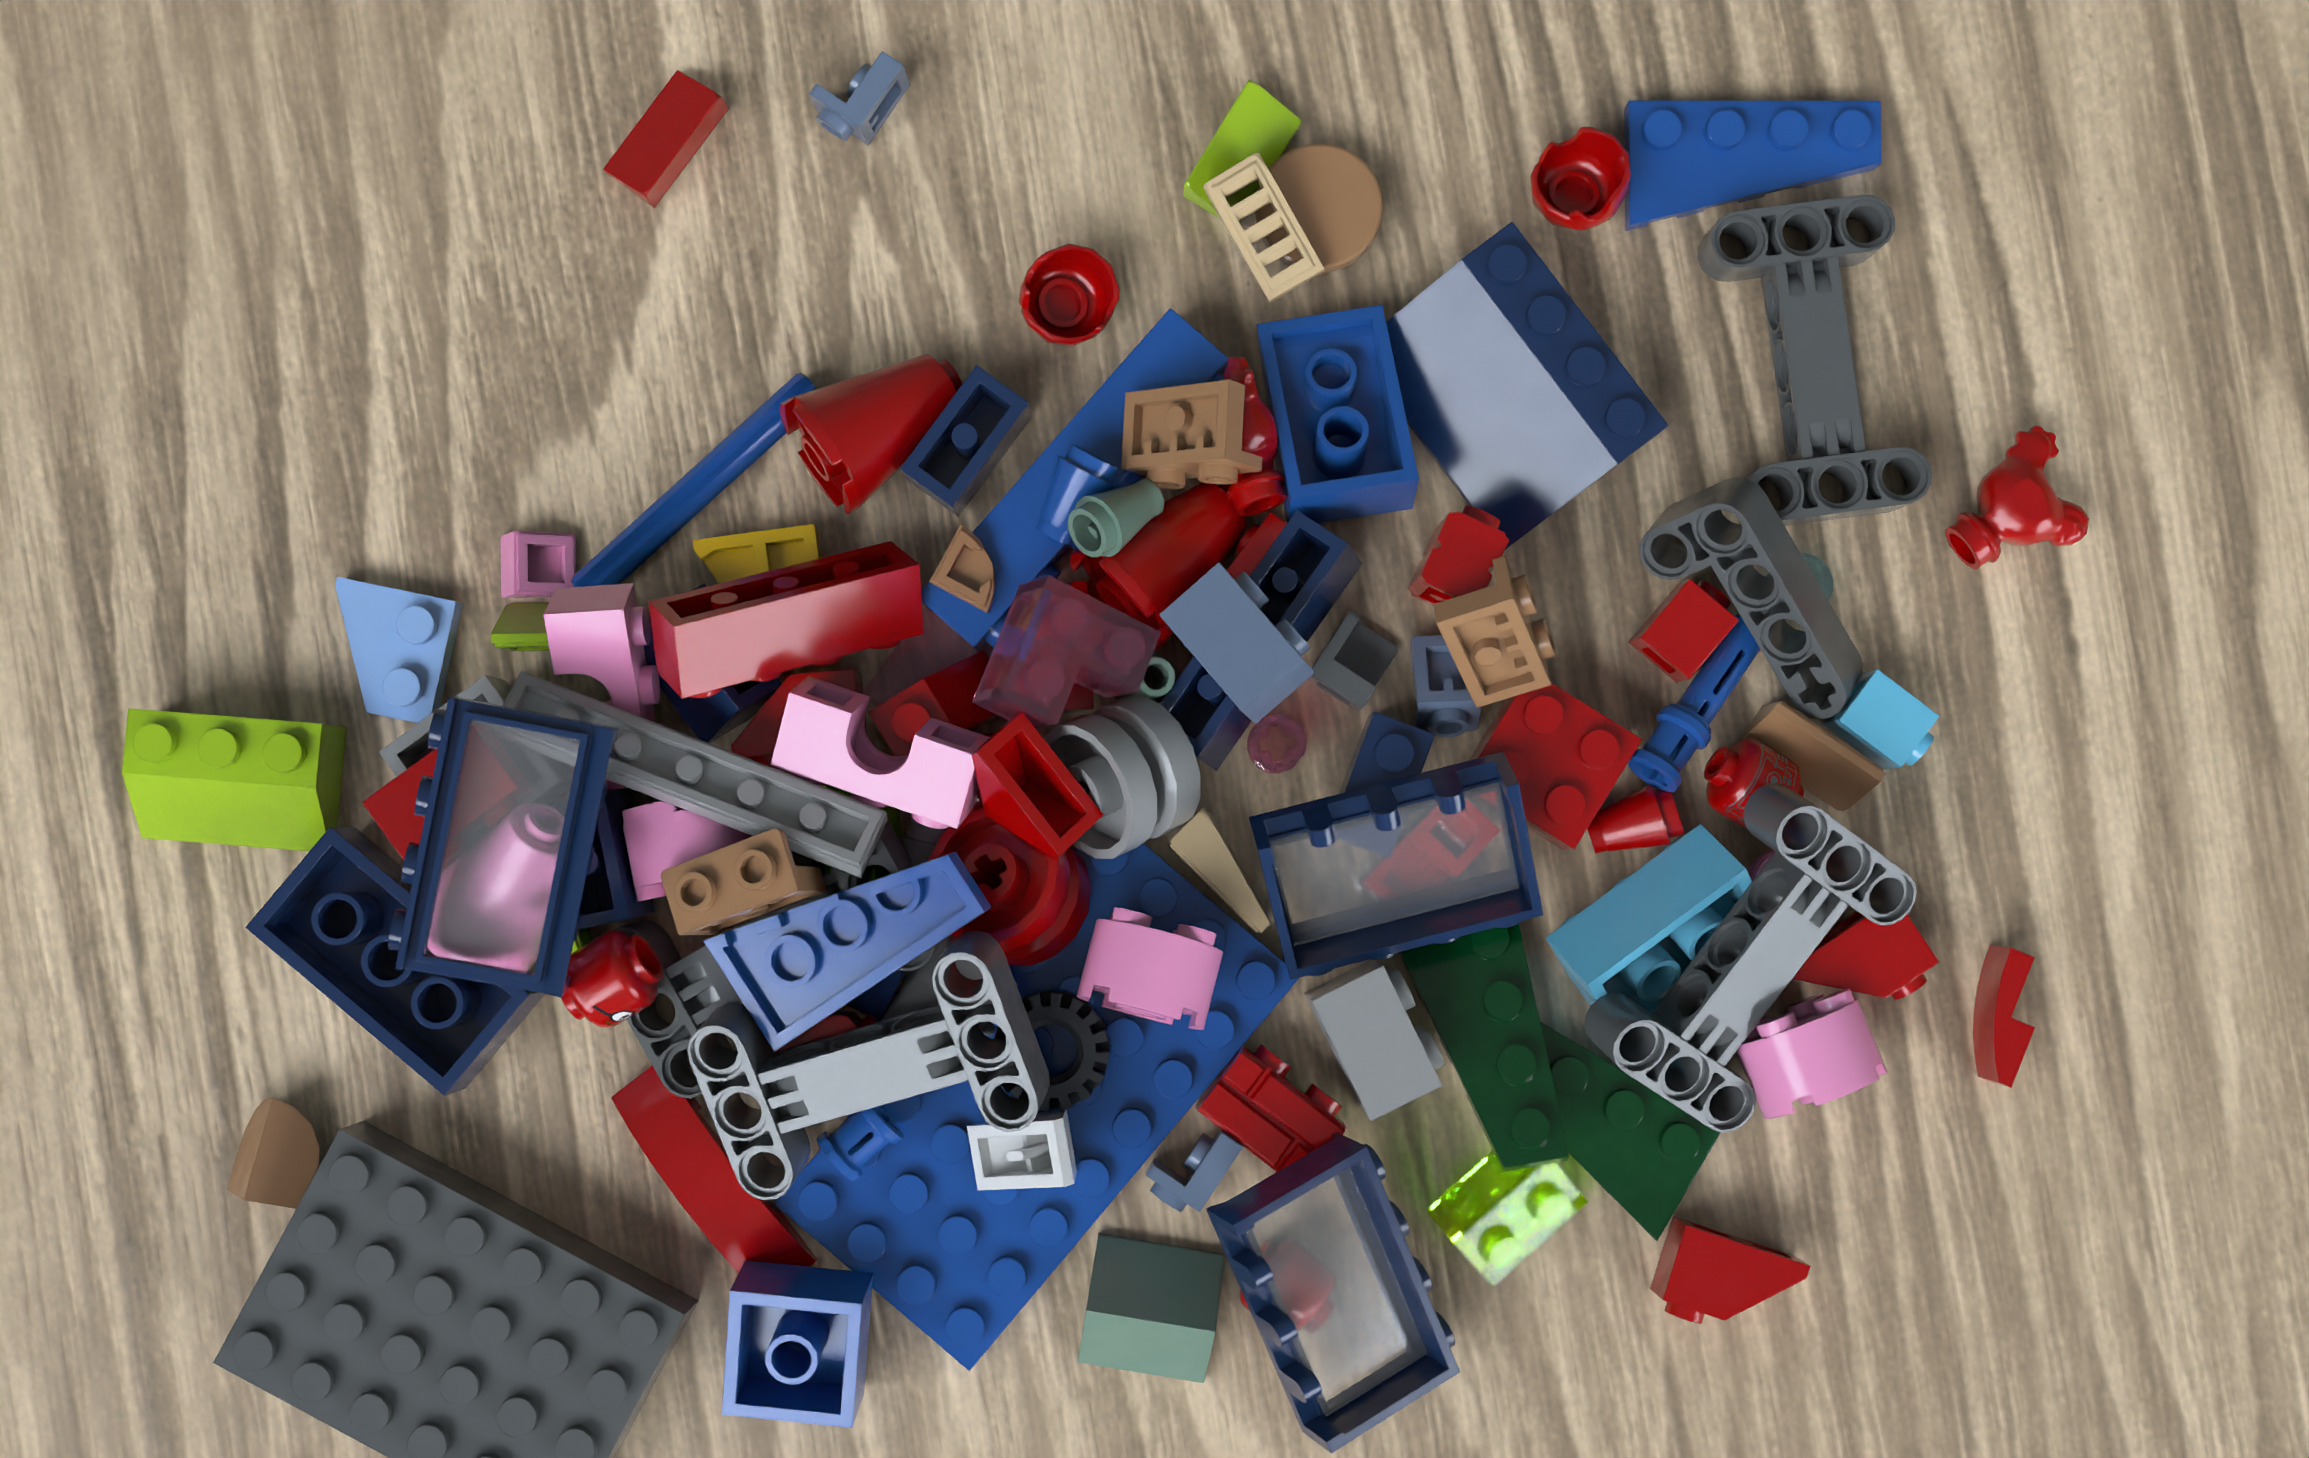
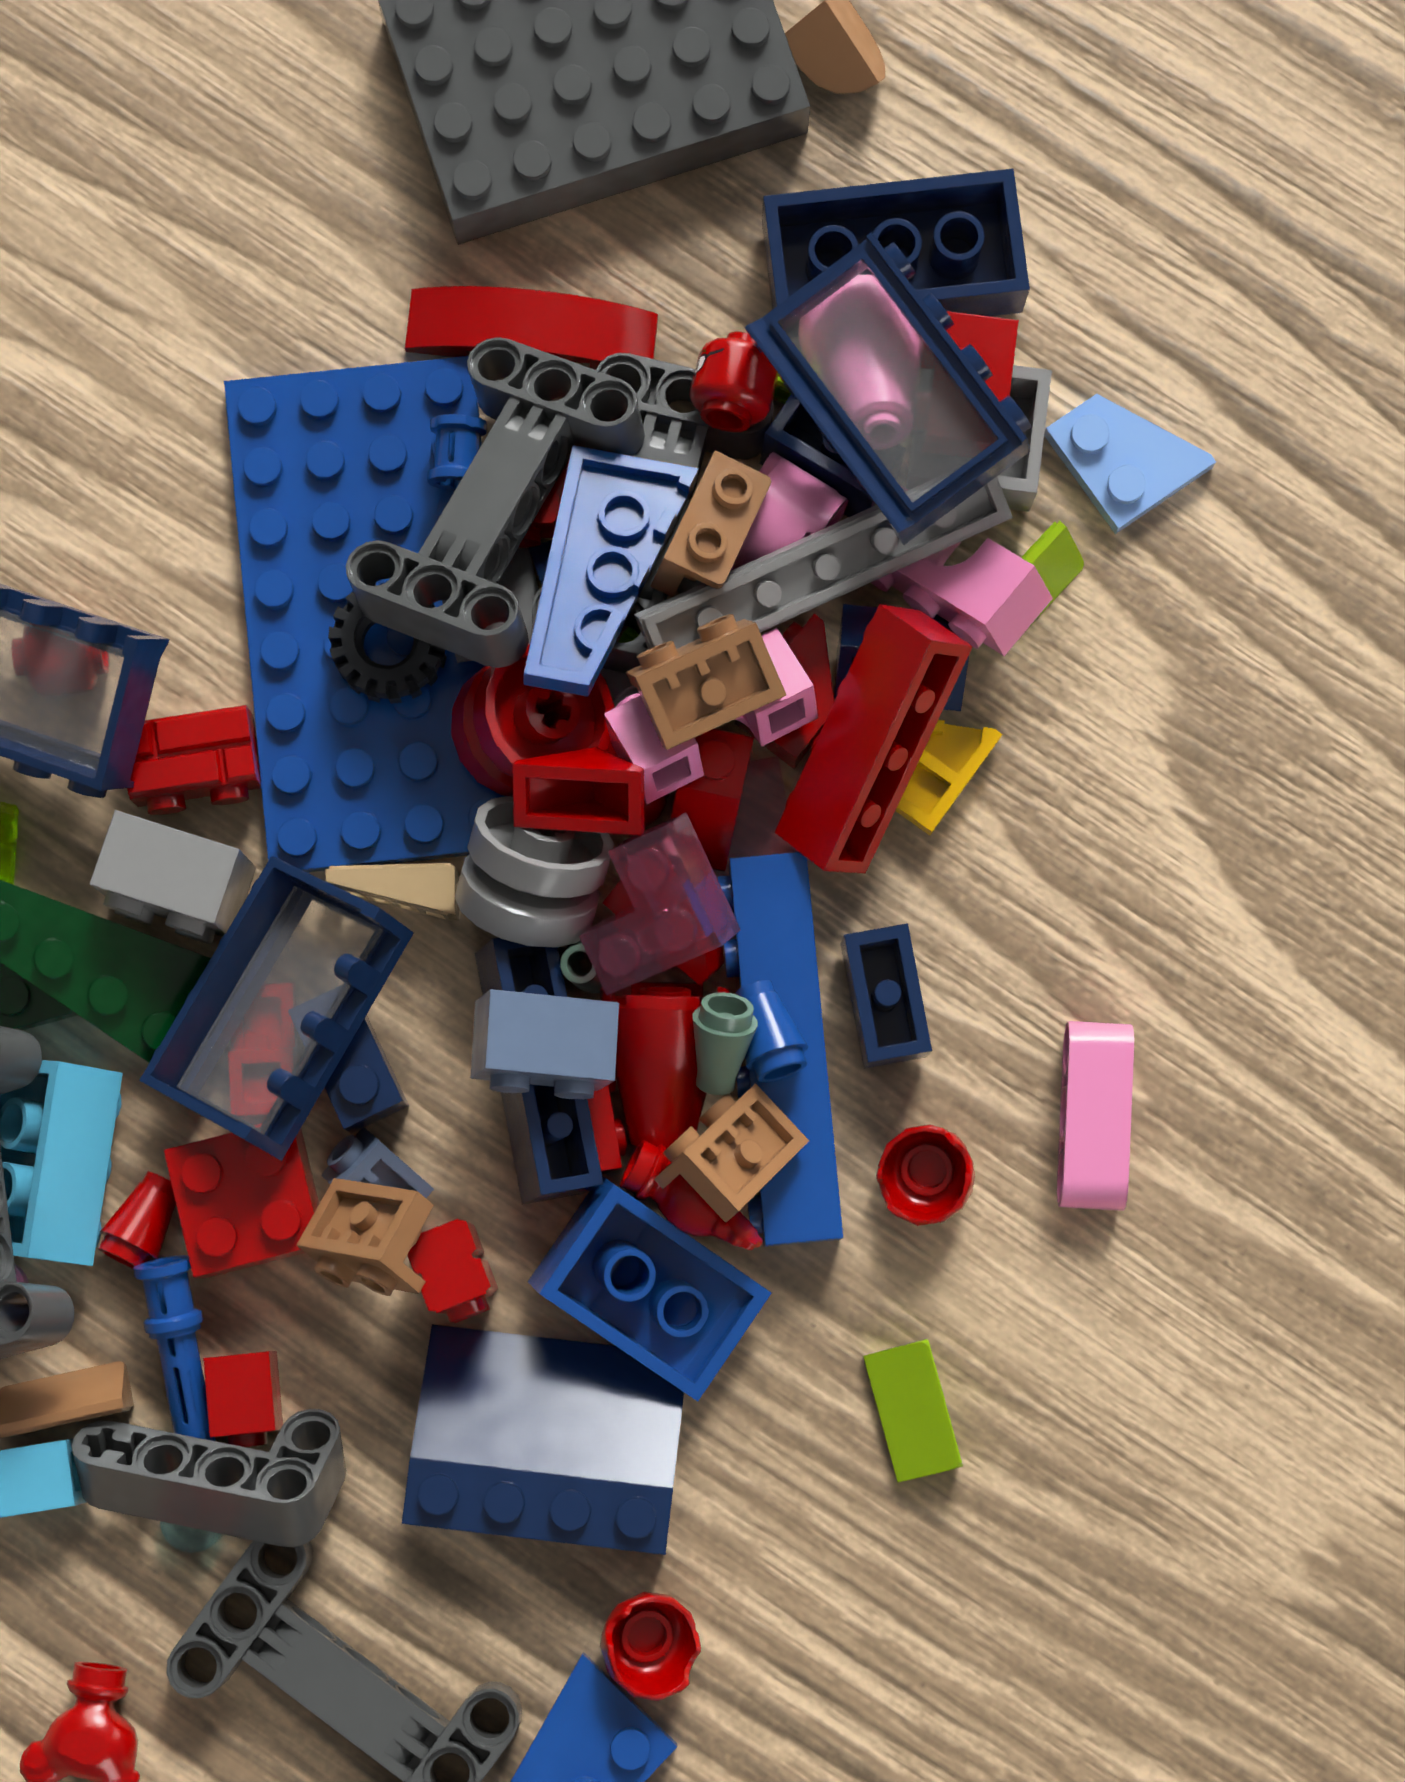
camera: 130 degrees right, 5 degrees down
(233, 778) = (1136, 261): lime slope -> none
(536, 563) = (1091, 611): bright pink slope -> none
(666, 138) = (1326, 994): red slope -> none
(692, 491) = (1040, 777): blue axle -> none
(797, 1343) = (357, 279): blue brick -> none
(860, 772) = (706, 680): none -> medium nougat bracket
(868, 425) = (965, 941): red cone -> none
(872, 99) = (1215, 1175): sand blue bracket -> none
(910, 218) = (1095, 1115): none -> bright pink beam
(967, 571) = (787, 903): medium nougat tile -> none
(1024, 1158) = (319, 556): white slope -> none
(1150, 969) = (373, 759): bright pink brick -> none
(1151, 1308) = (143, 548): sand green slope -> none
(1208, 1165) = (203, 680): sand blue bracket -> none
(1235, 179) = (892, 1377): tan slope -> none
(1287, 728) = (450, 994): clear pink bush -> none
(1332, 201) = (817, 1428): medium nougat tile -> none
(1353, 662) = (457, 1127): dark grey panel -> none
(1742, 769) = (95, 1340): red head -> none

